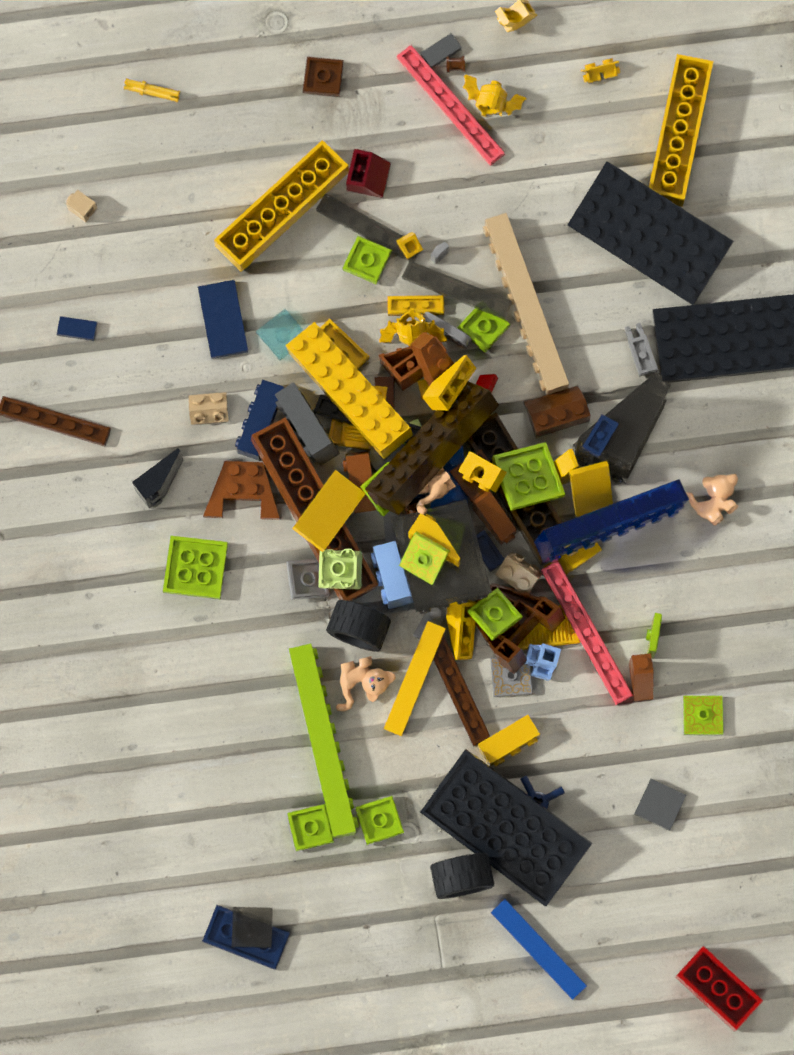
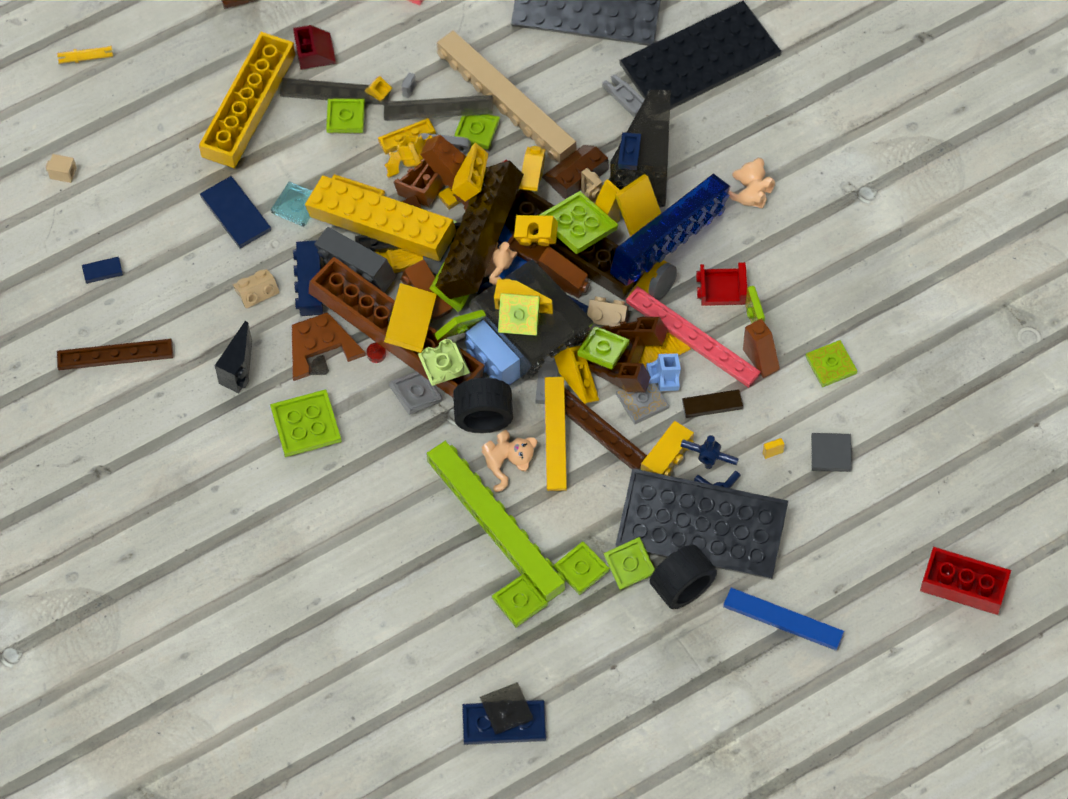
camera: 25 degrees left, 15 degrees down
(231, 514) = (318, 366): none -> clear smoke tile
(286, 524) = (376, 353): none -> clear red tile
(370, 539) = (460, 324): none -> lime plate
(424, 835) = (629, 563): none -> lime plate
(514, 397) = (532, 168): none -> yellow slope
(543, 763) = (709, 452): none -> dark blue bar
(562, 438) = (590, 184): none -> tan bracket
(574, 708) = (712, 403): none -> dark brown tile
(584, 566) = (663, 282): none -> dark grey tile
(607, 779) = (773, 448): none -> yellow tile
(638, 591) = (722, 286): none -> red panel

